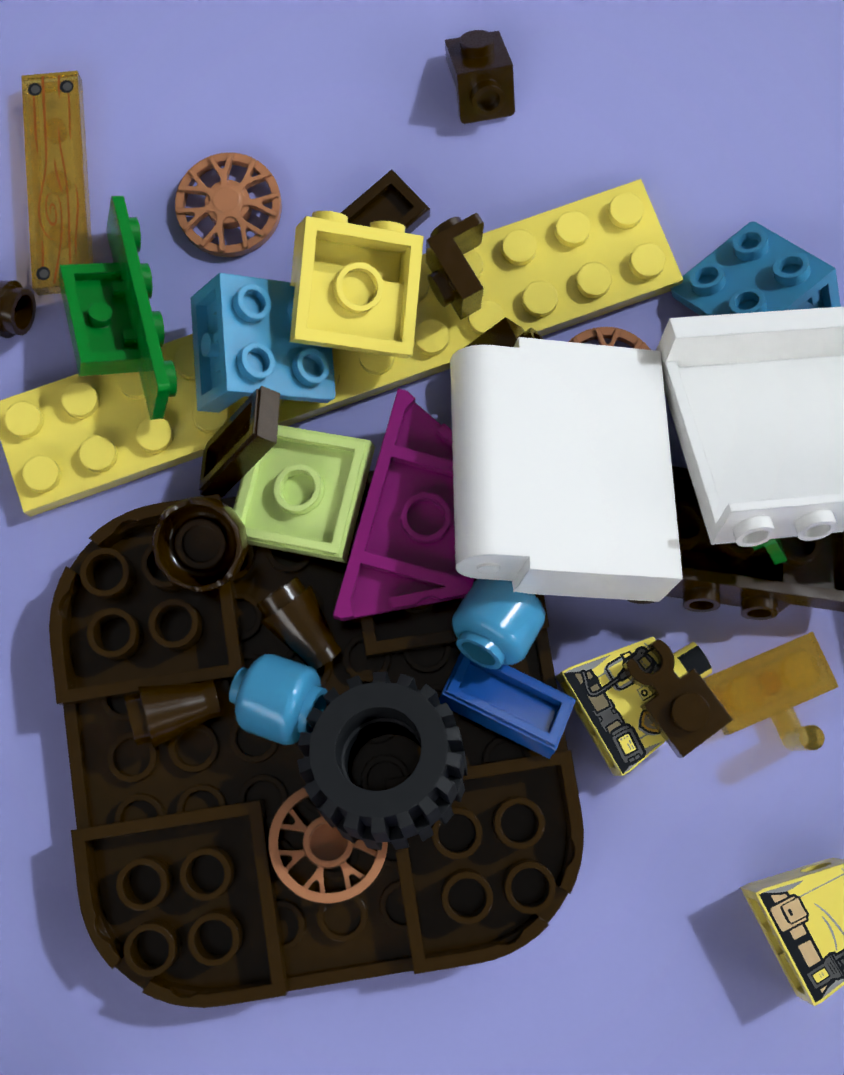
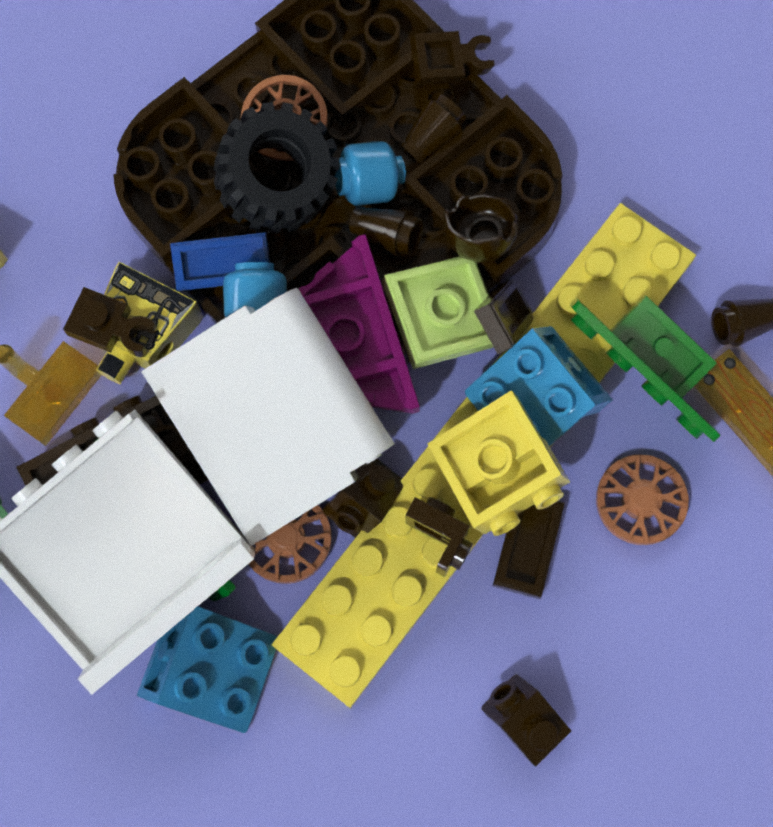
camera: 155 degrees right, 5 degrees down
(95, 796) = (442, 58): none -> dark brown plate

